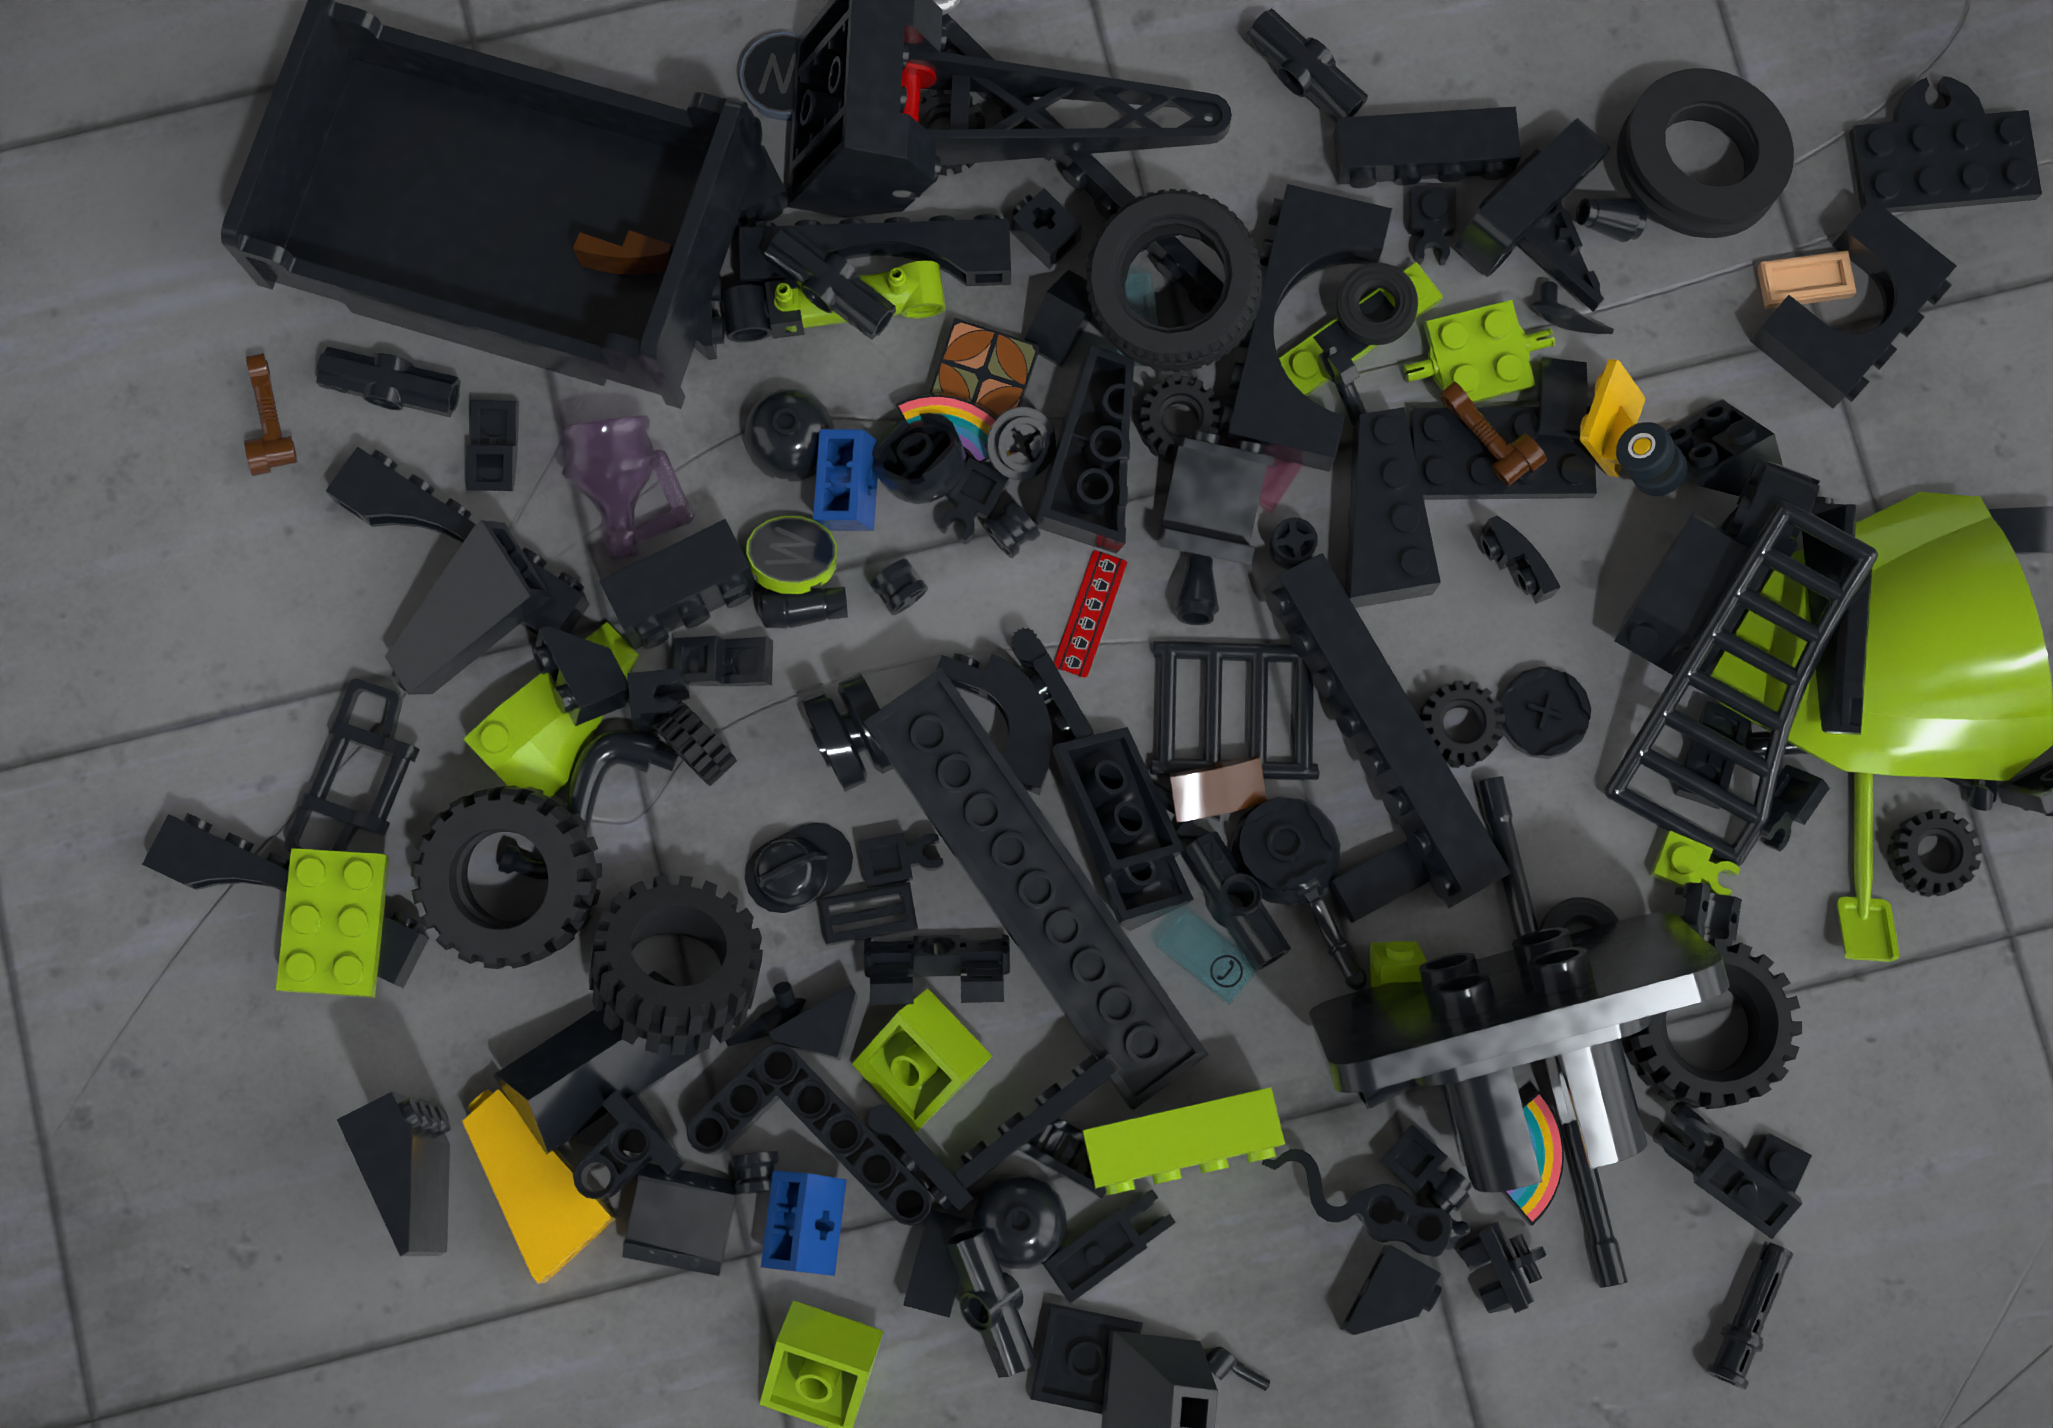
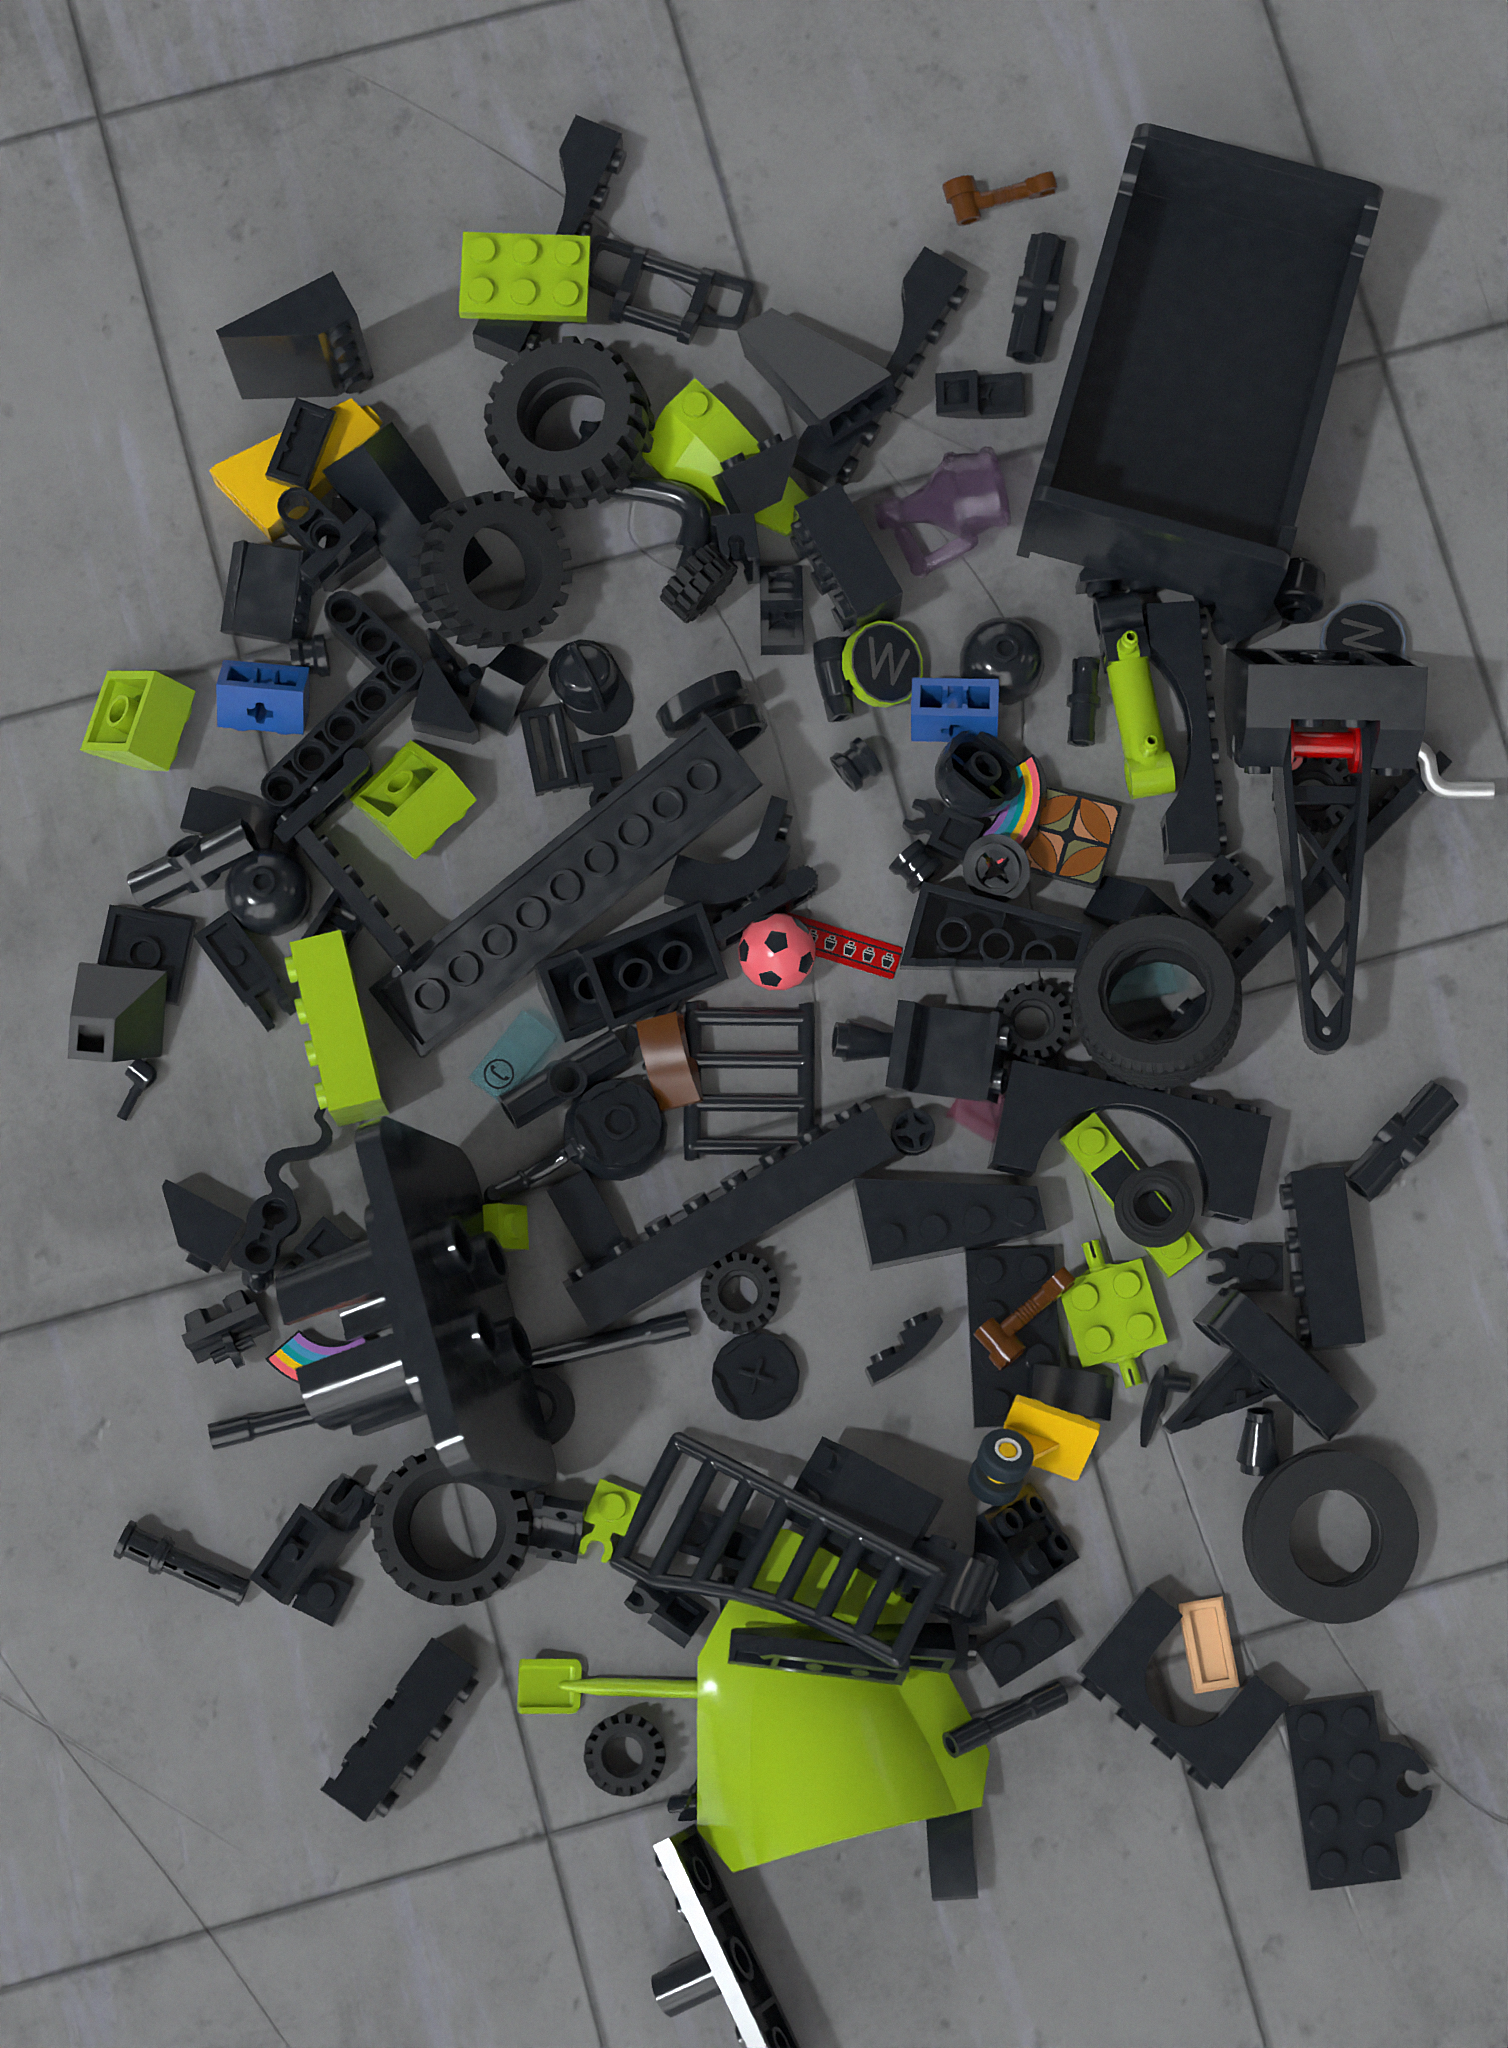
camera: 90 degrees right, 0 degrees up
(518, 1175) = (301, 444): none -> black plate
(636, 257) = (1158, 498): reddish brown slope -> none
(801, 956) = (506, 688): none -> black slope
(830, 282) = (1142, 682): black piece -> none
(837, 353) = (1083, 701): none -> black pin
(932, 956) = (504, 839): black piece -> none
(1104, 672) = (777, 952): none -> coral piece
(1342, 371) = (1071, 1177): black bar -> none
(1811, 451) = (1025, 1645): none -> black plate
(1907, 491) = (982, 1729): none -> black piece
(1925, 1082) = (402, 1731): none -> black wedge

